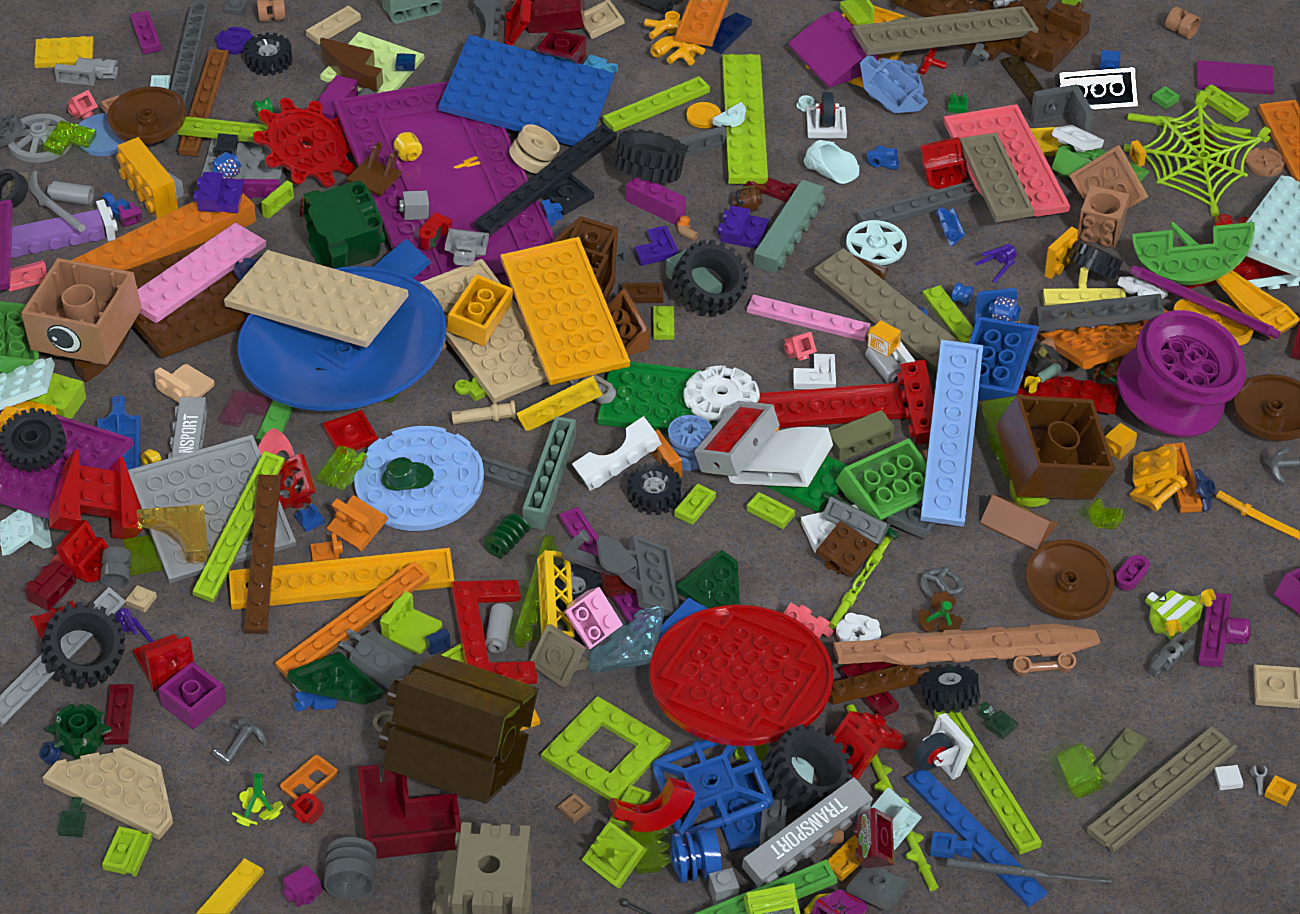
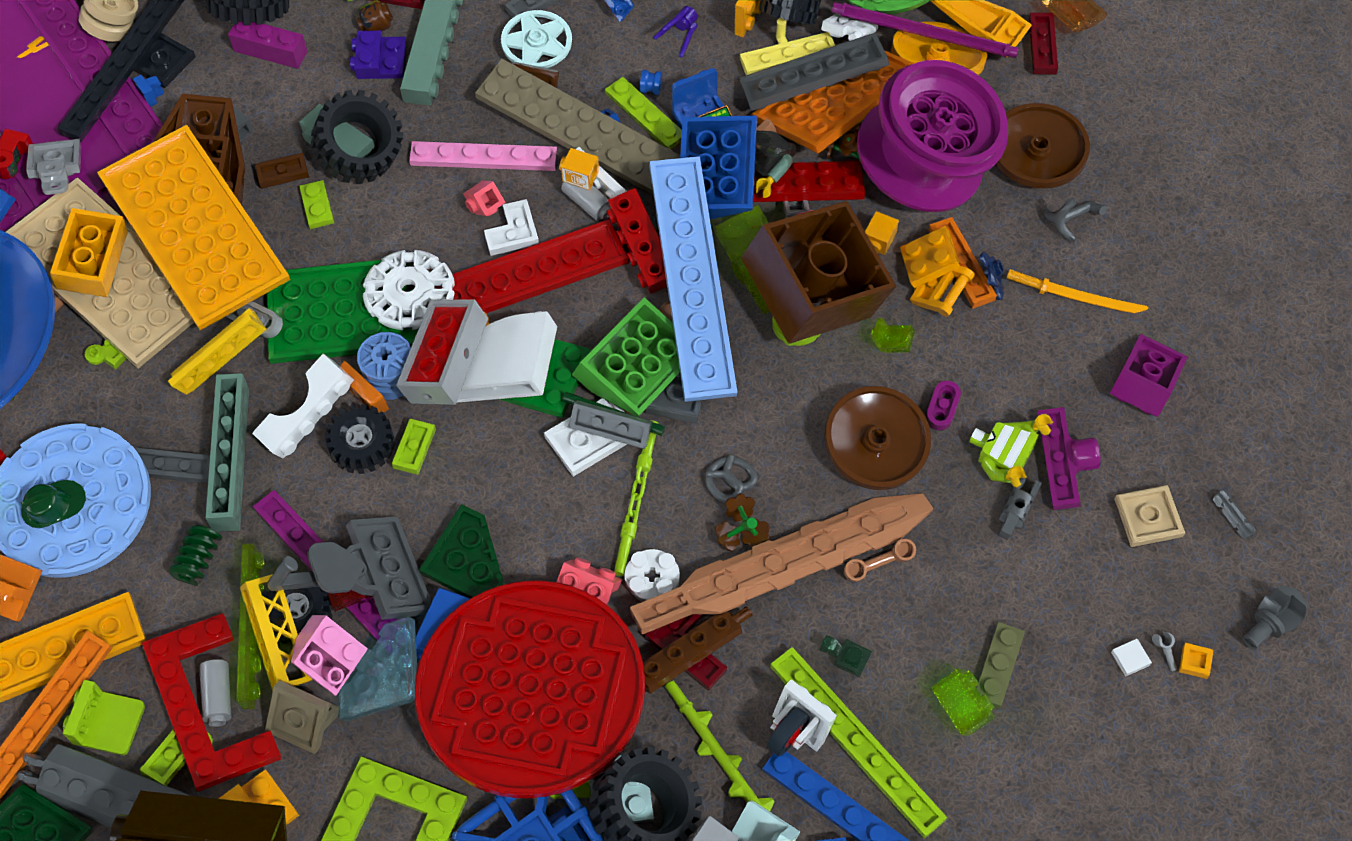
camera: 15 degrees left, 15 degrees up
(438, 641) = (144, 734): dark blue tile -> none
(493, 412) = (140, 381): tan pin -> none
(629, 323) = (274, 220): dark orange slope -> none
(660, 248) = (290, 105): dark purple plate -> none
(684, 228) = (310, 71): medium nougat arm -> none
(771, 510) = (505, 431): lime plate -> none
(845, 549) = (608, 465): reddish brown plate -> none
(861, 435) = (585, 301): olive brick -> none
(866, 736) = (704, 729): red bracket -> none
(950, 688) = (783, 630): black wheel -> none
(1005, 309) = (708, 98): blue head -> none
(1017, 522) = (795, 370): slope -> none
(1161, 790) = (1062, 700): dark tan plate -> none

